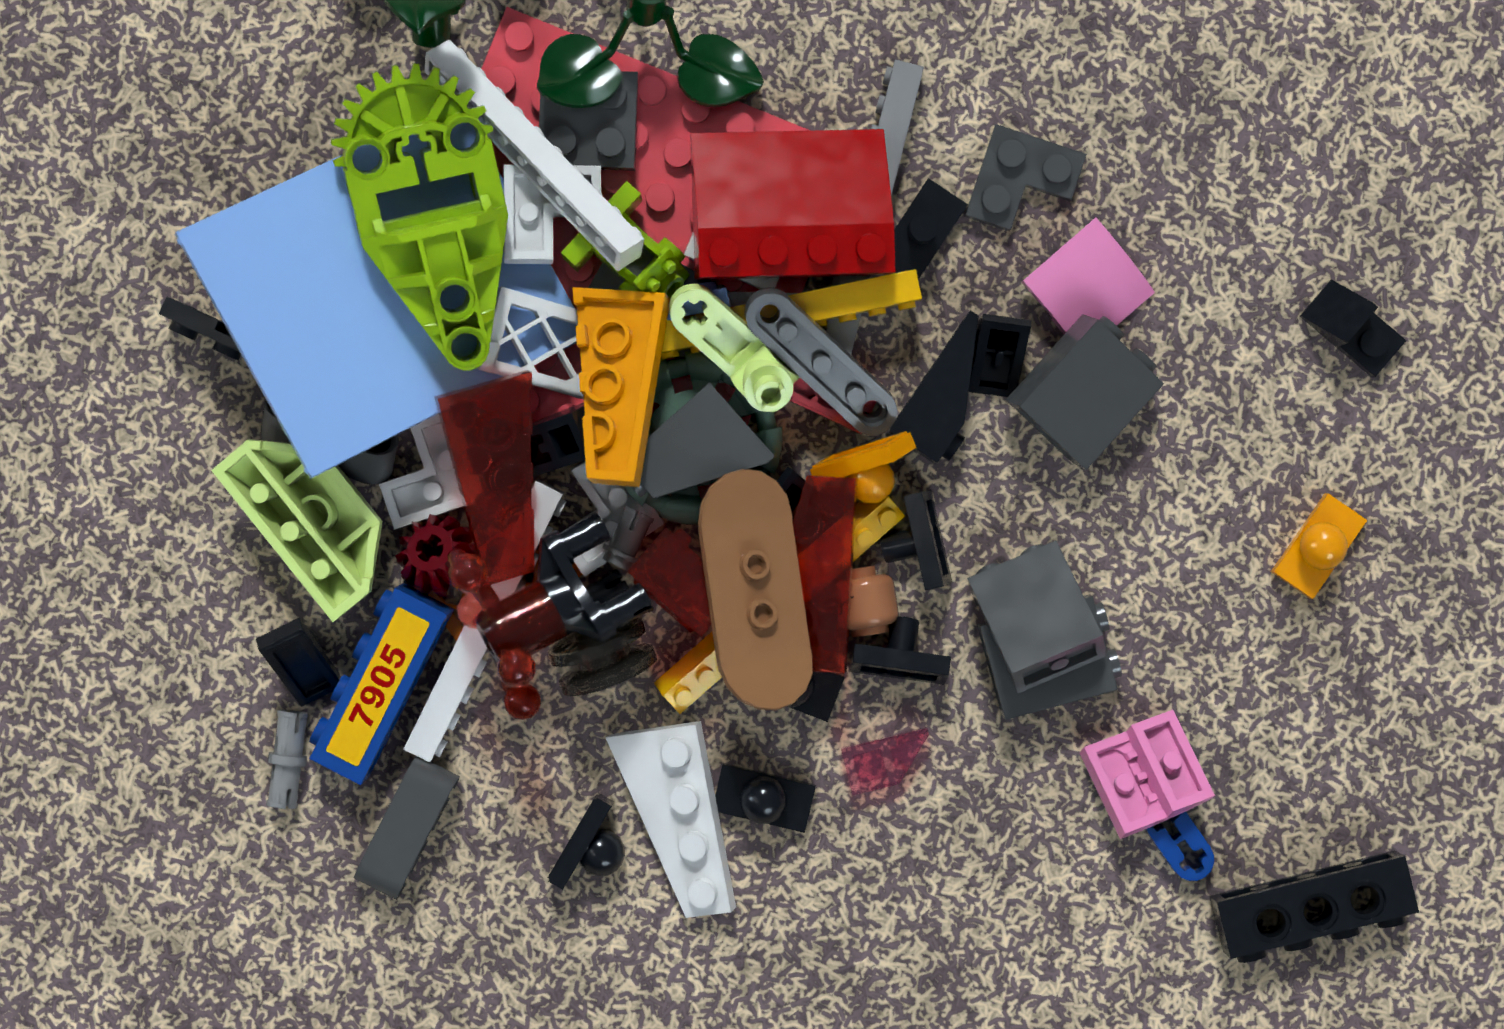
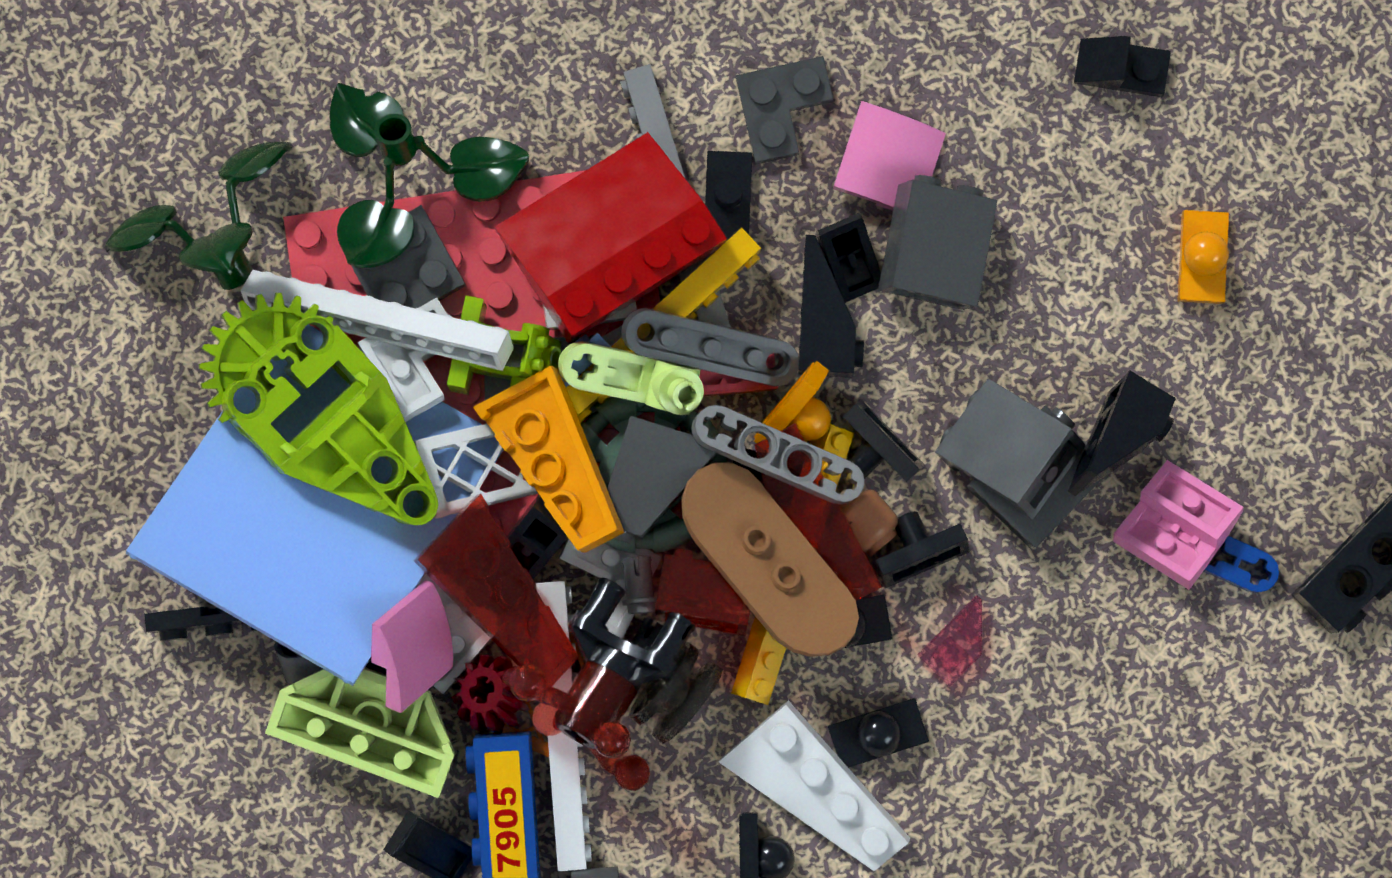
camera: 20 degrees left, 5 degrees down
(388, 473) = (412, 645): none -> bright pink slope
(826, 495) = (780, 448): none -> light grey beam
(1156, 657) = (1128, 422): none -> black slope

